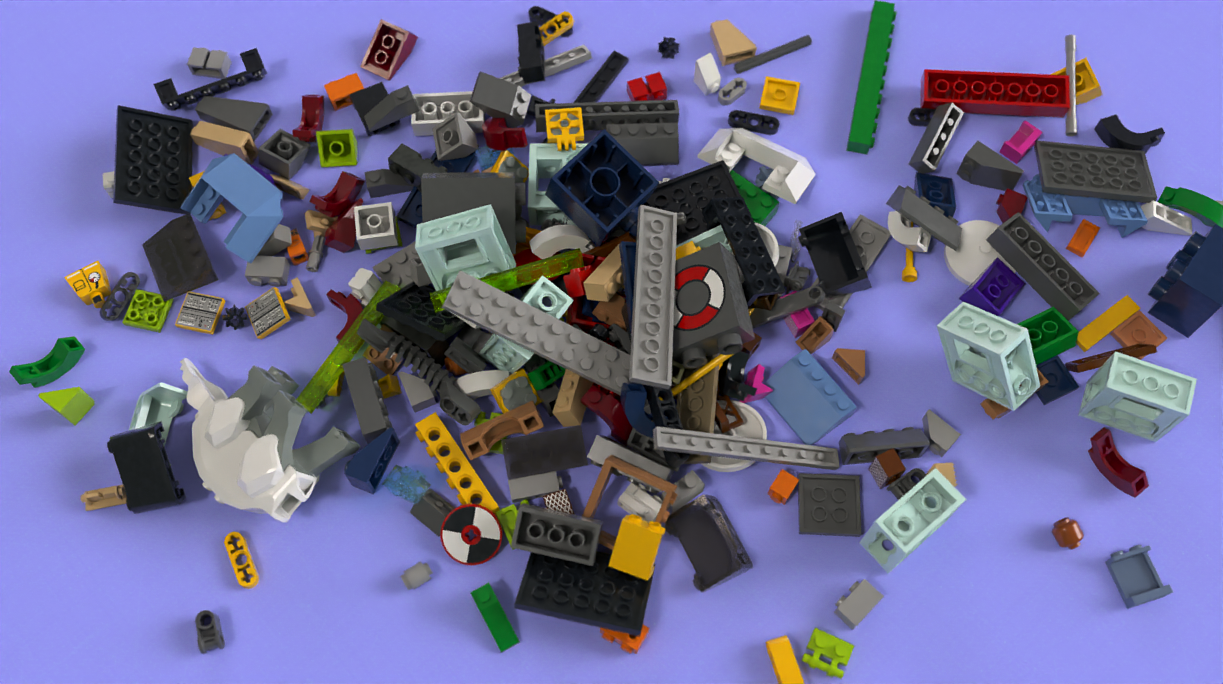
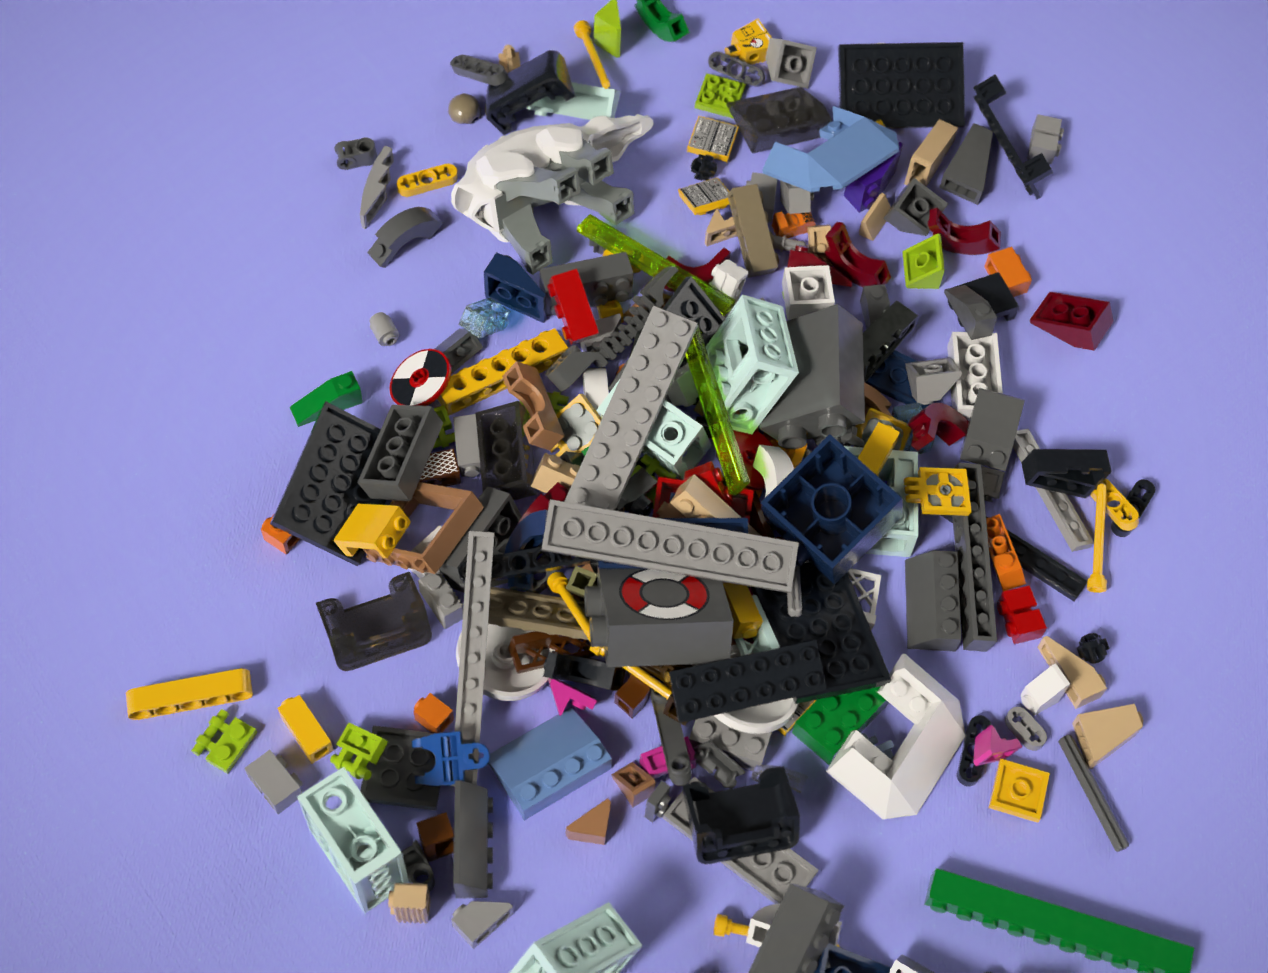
camera: 90 degrees right, 5 degrees down
(63, 433) = (583, 31): none -> yellow piece
(116, 521) = (479, 70): none -> dark grey beam
(117, 249) = (790, 62): none -> light grey slope
(155, 535) = (464, 109): none -> dark tan hair
(258, 606) = (375, 187): none -> light grey slope
(310, 271) = (752, 230): none -> dark tan brick
(311, 570) = (400, 229): none -> dark grey arch
(403, 402) = (572, 307): none -> red brick
(535, 166) = (879, 447): none -> yellow brick
(609, 93) = (1003, 554): none -> orange slope
(614, 44) = (1097, 581): none -> yellow piece
(686, 60) = (1084, 681): none -> tan slope
(756, 106) = (991, 747): none -> dark pink slope
(809, 586) = (305, 728): none -> yellow brick
(821, 534) = (361, 743): none -> lime plate
(825, 463) = (460, 757): none -> blue piece

